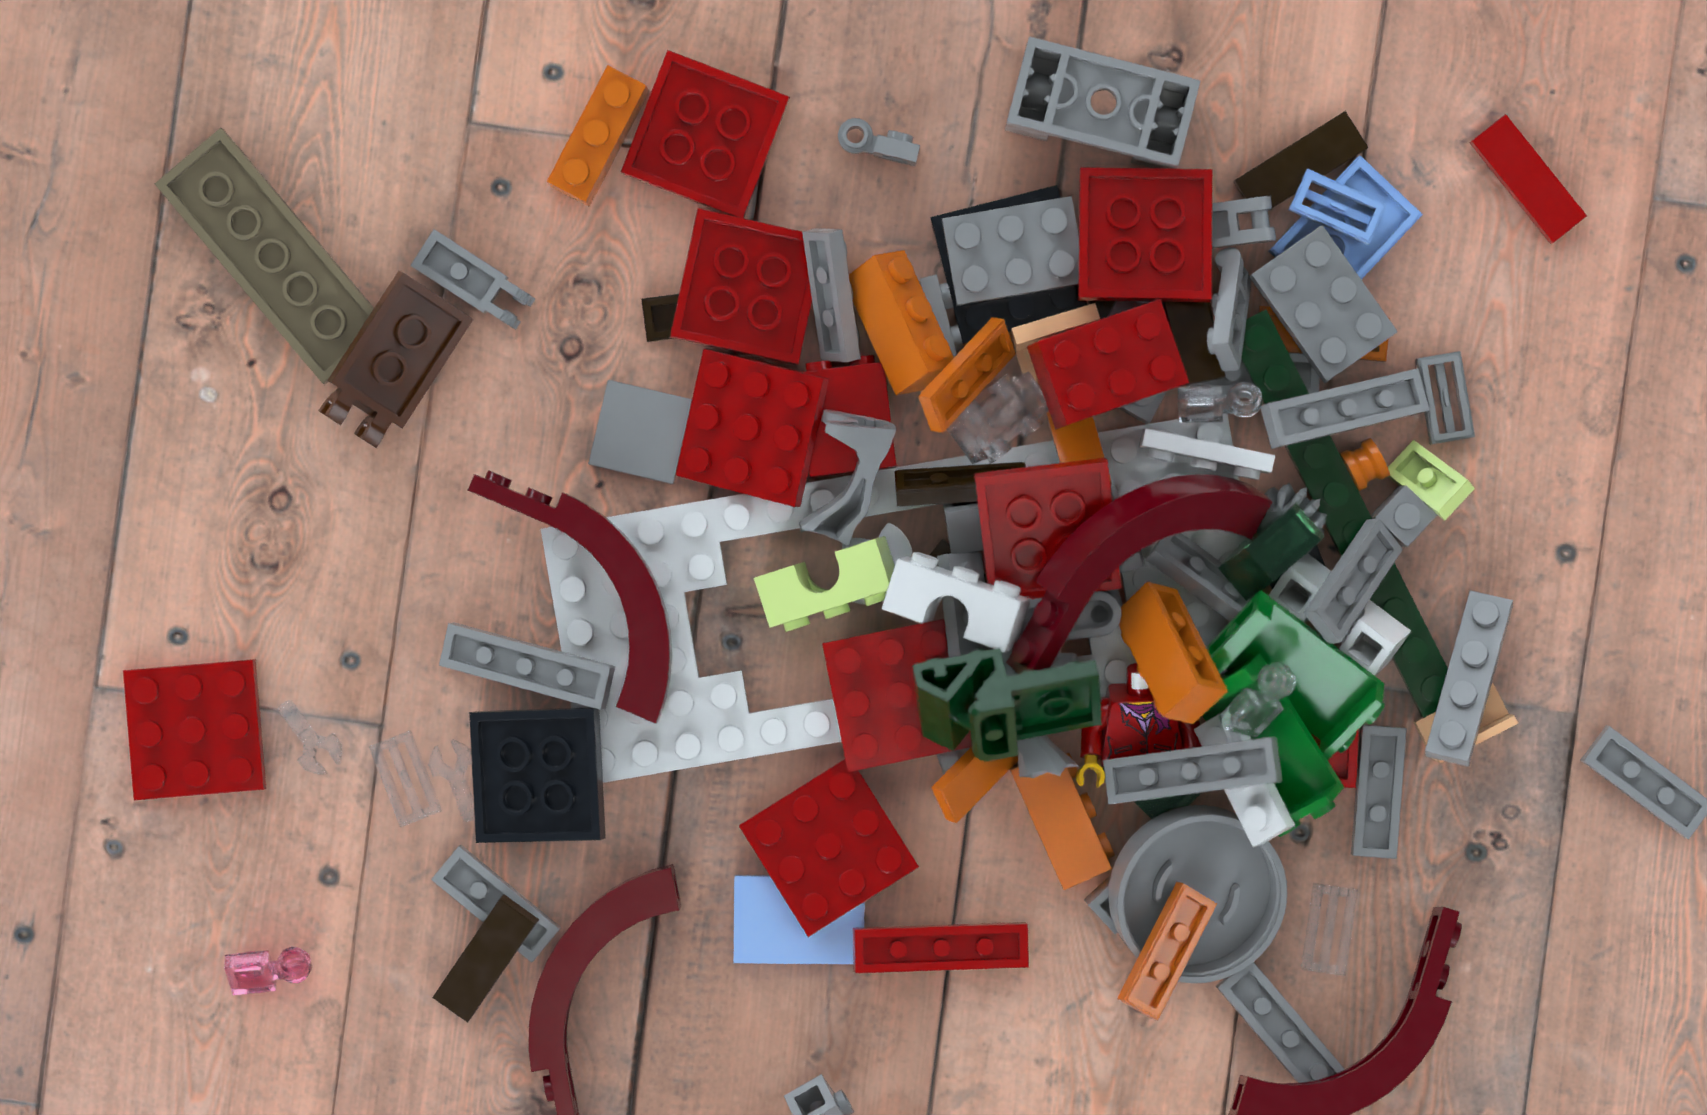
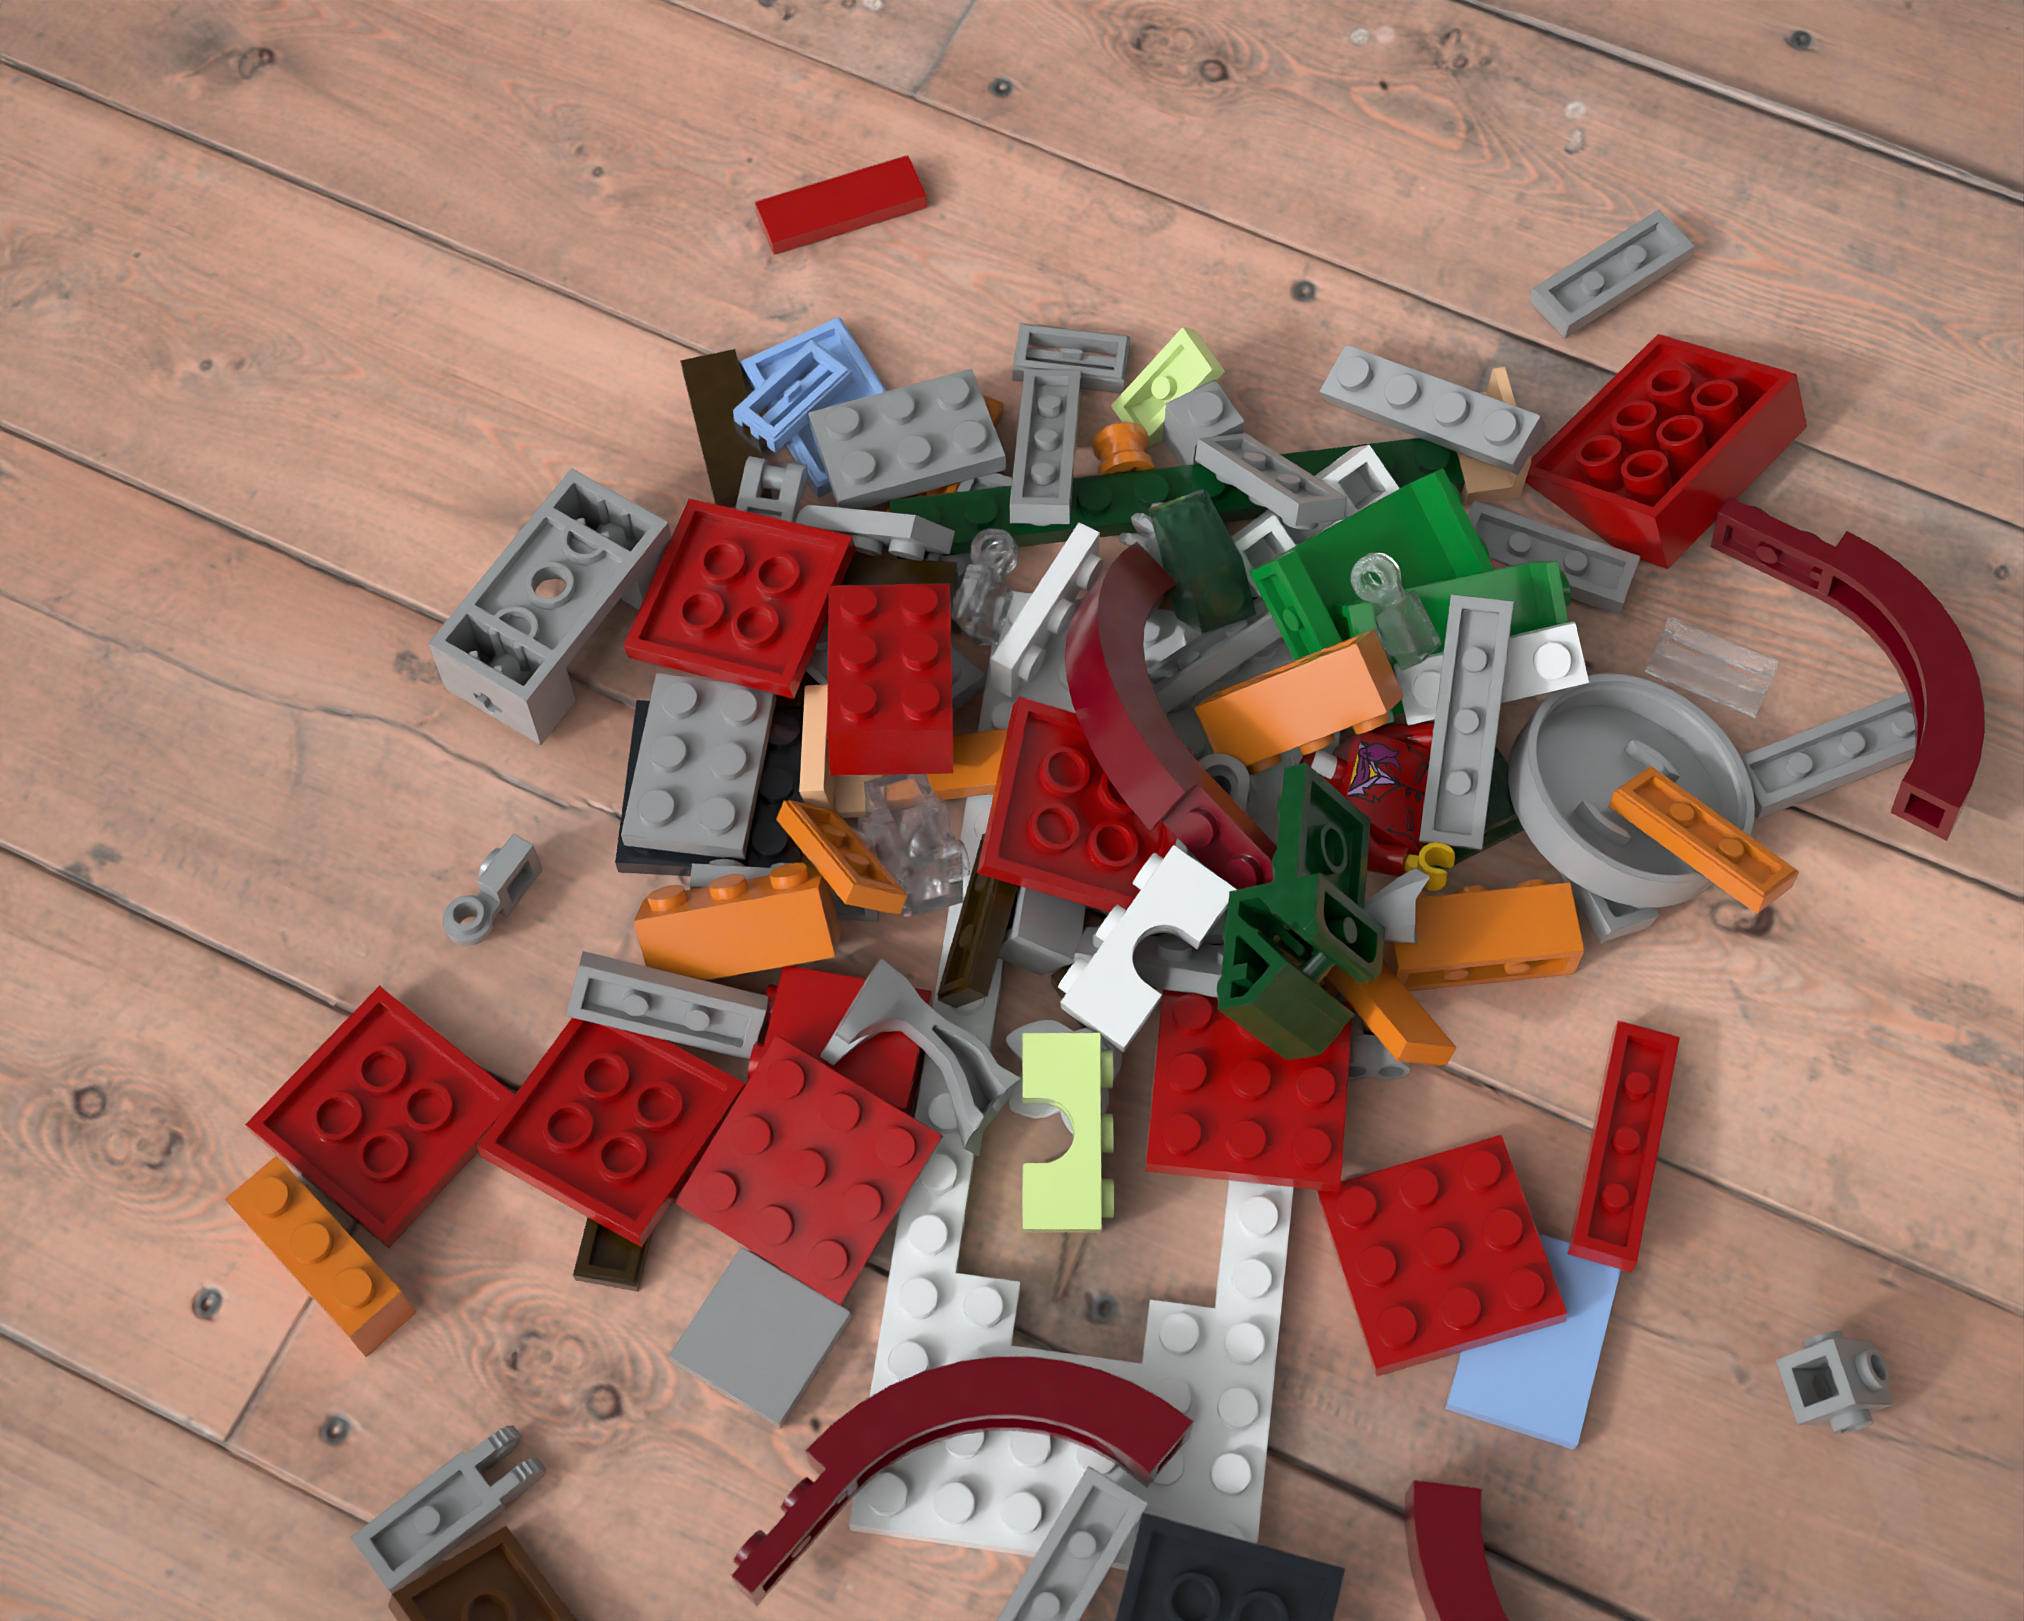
camera: 70 degrees left, 25 degrees down
(1502, 856) = (1668, 446): none -> red slope

